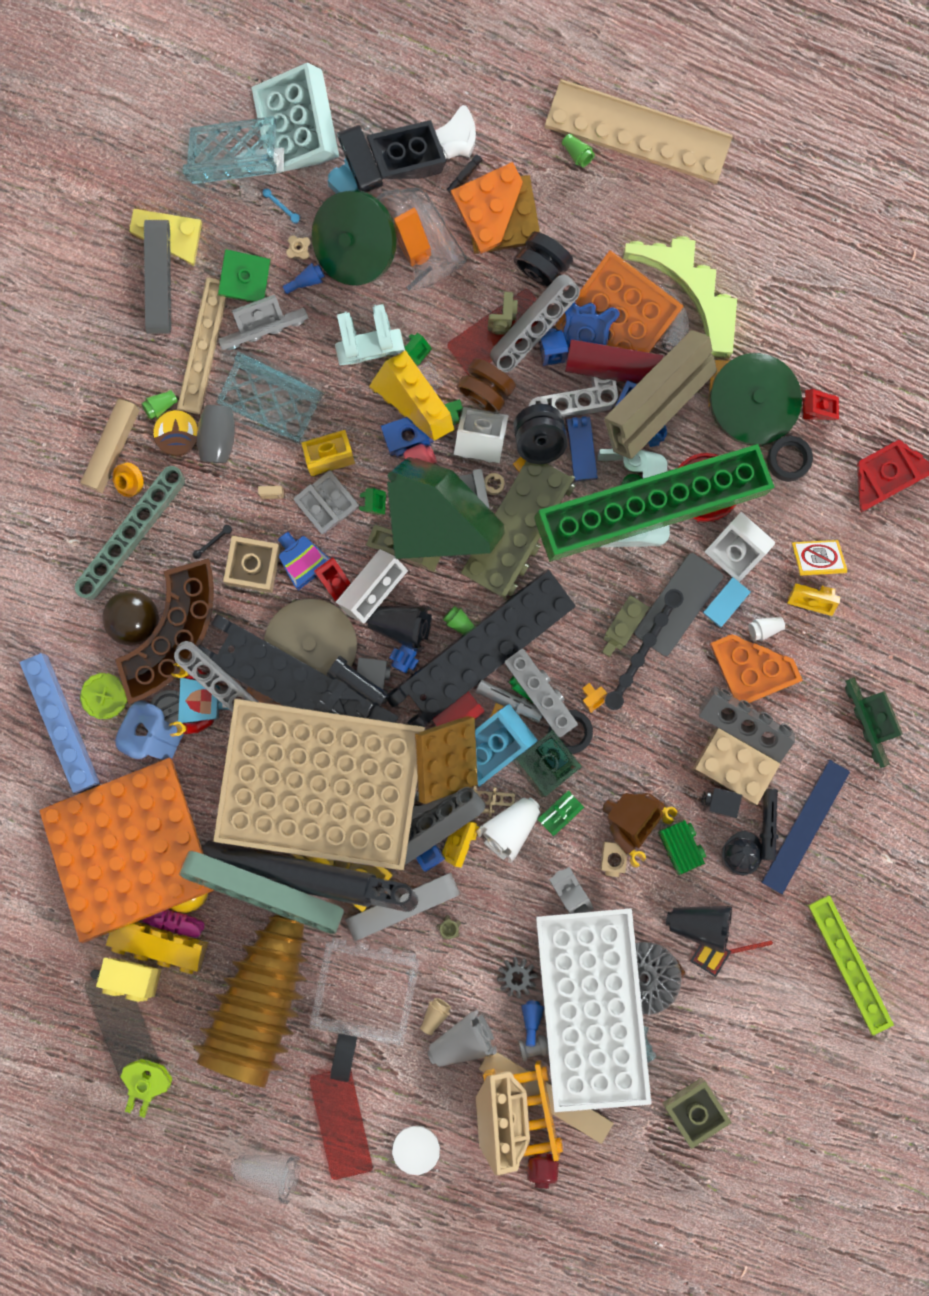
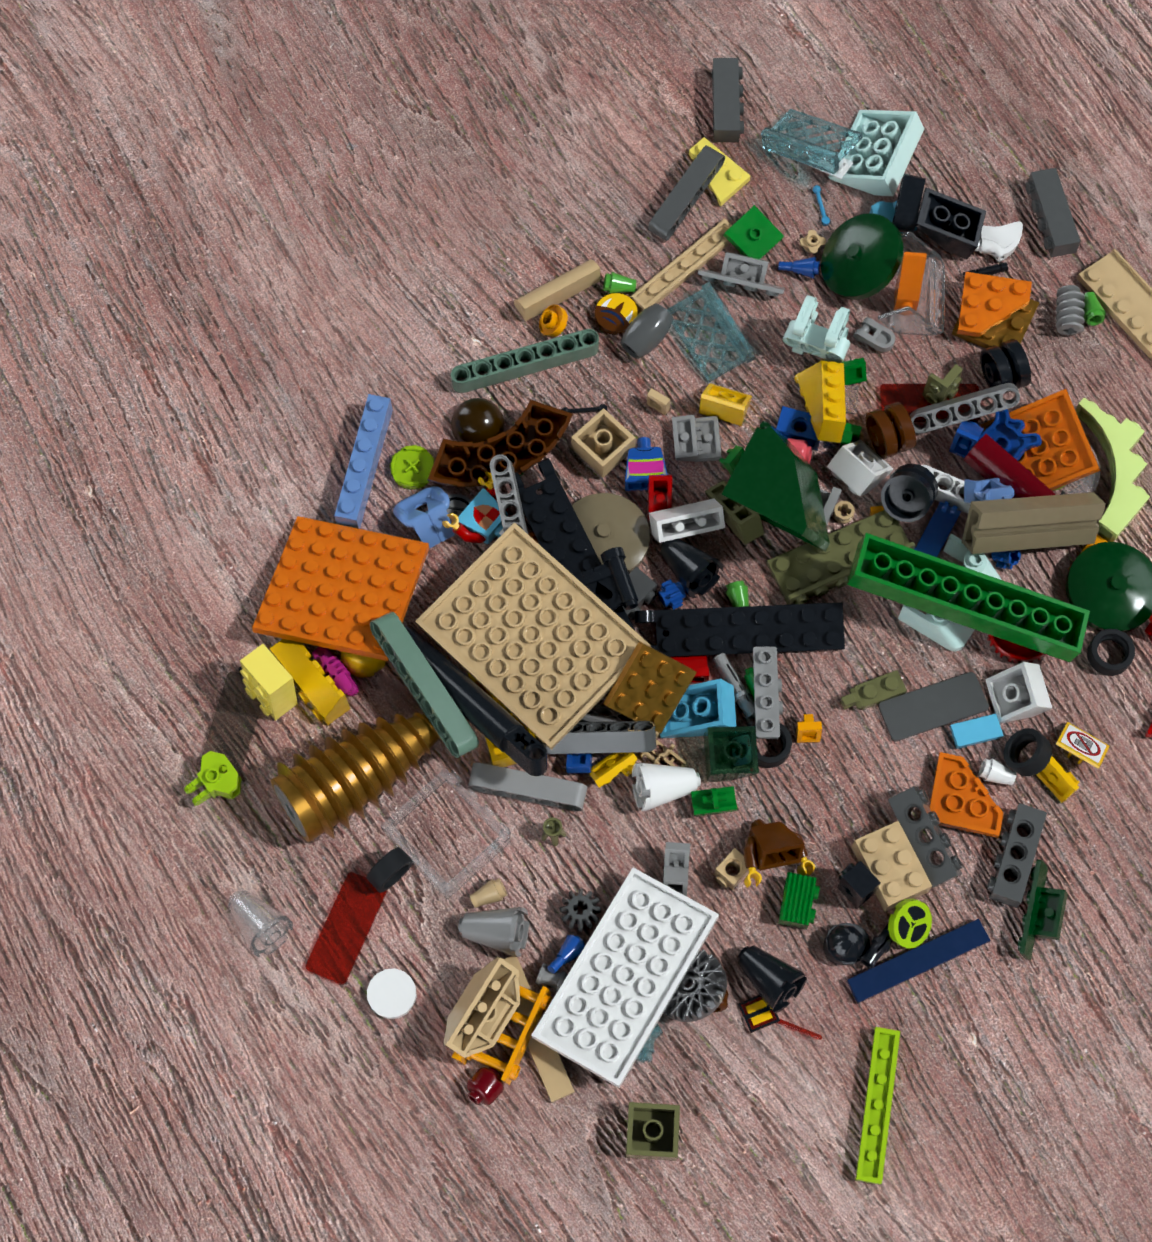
camera: 40 degrees right, 15 degrees down
(127, 158) = (726, 100): none -> dark grey brick
(421, 301) = (882, 340): none -> light grey plate
(485, 78) = (1052, 212): none -> dark grey brick
(560, 166) = (1070, 310): none -> light grey piece
(606, 391) = (986, 490): none -> medium blue piece
(673, 599) = (825, 739): black bar -> none
(781, 804) = (910, 923): none -> lime tile
(796, 595) = (1037, 761): none -> black tyre
(837, 694) = (1032, 821): none -> dark grey brick

